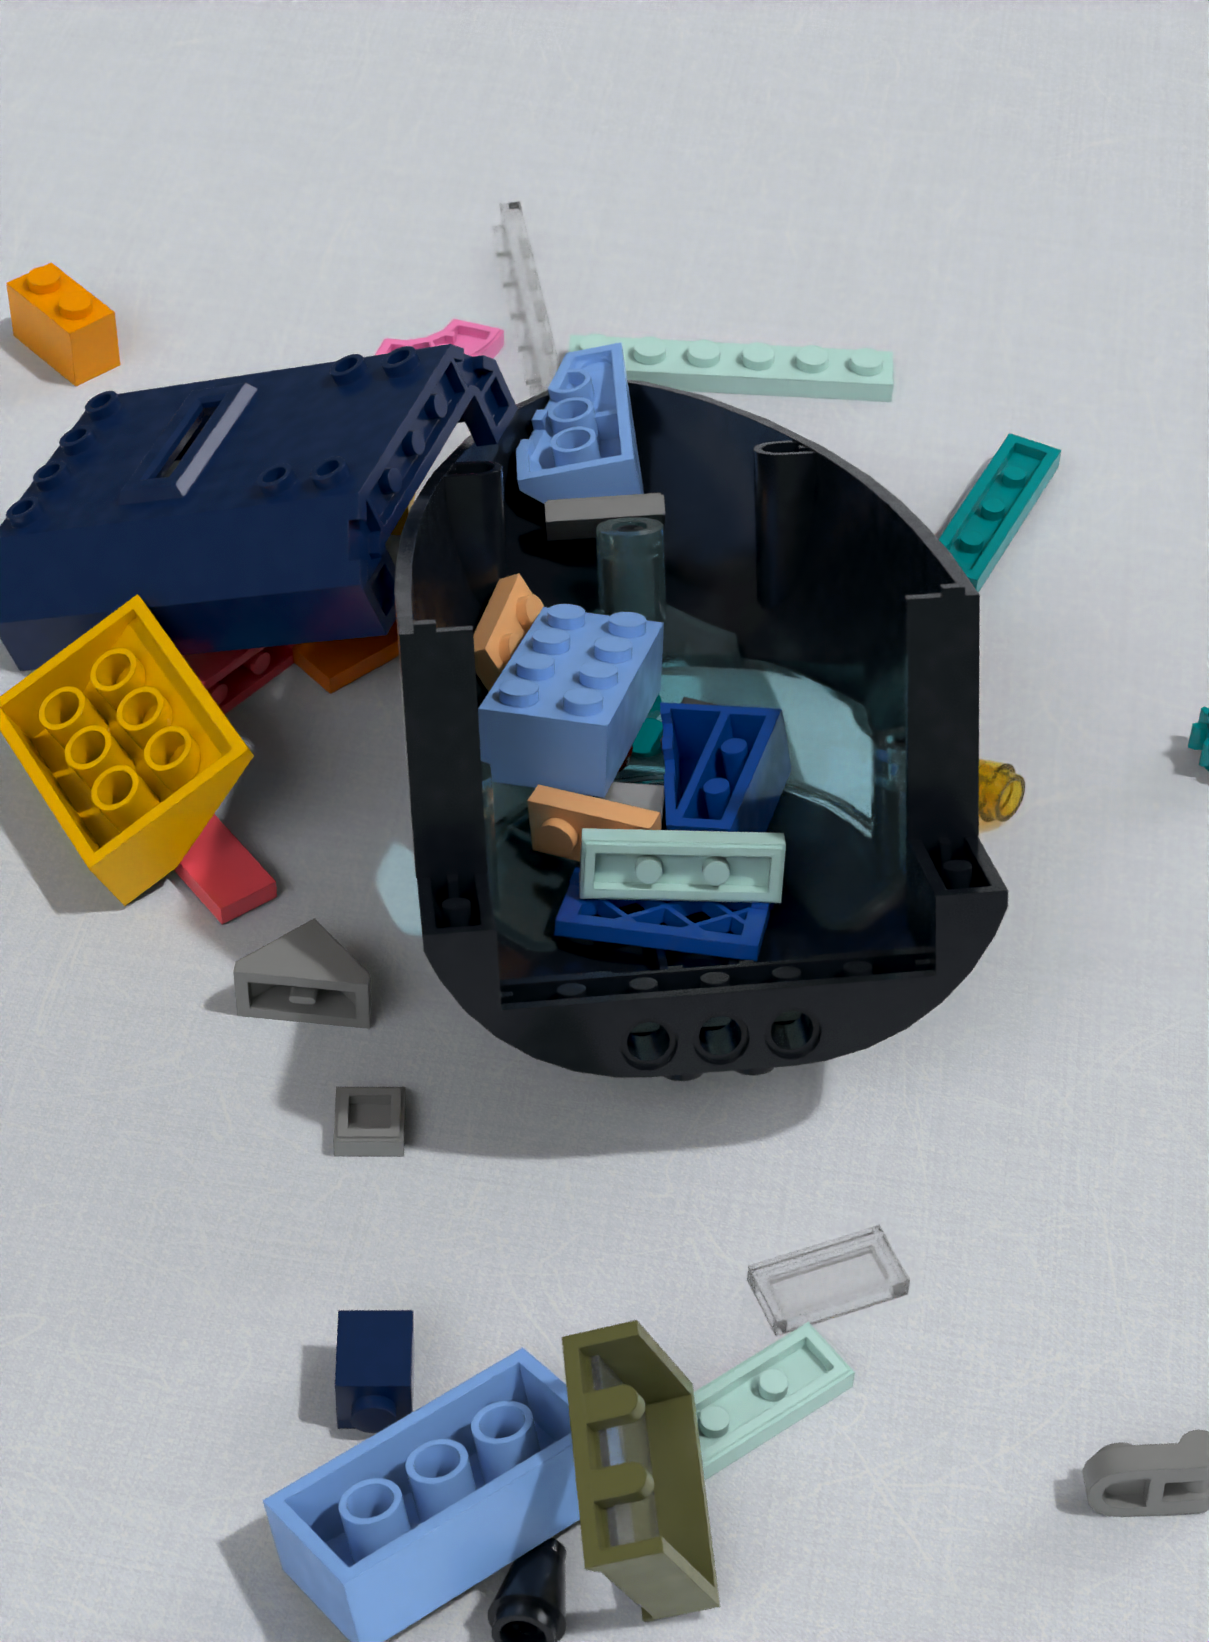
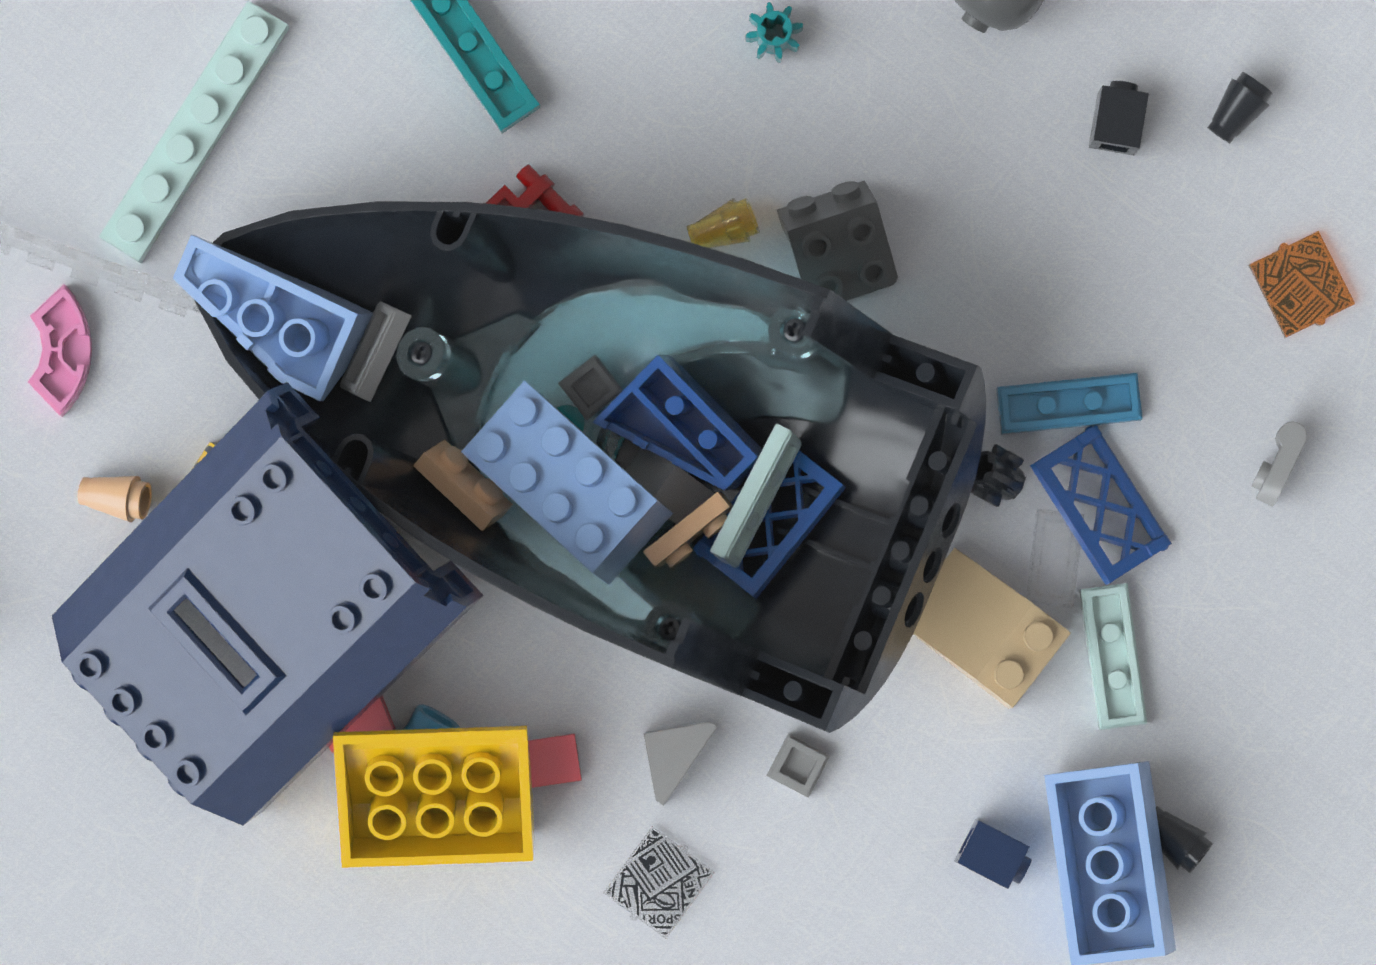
camera: 60 degrees left, 40 degrees up
(132, 1046) = (659, 882): none -> clear piece
(639, 1471) = (1170, 759): olive window -> none
(677, 1245) = (988, 629): none -> tan slope
(888, 1153) = (998, 476): none -> black gear
(899, 1357) = (1088, 538): none -> blue window
(1041, 1212) = (1069, 403): none -> dark azure tile
(1052, 888) = (840, 240): none -> dark grey bracket

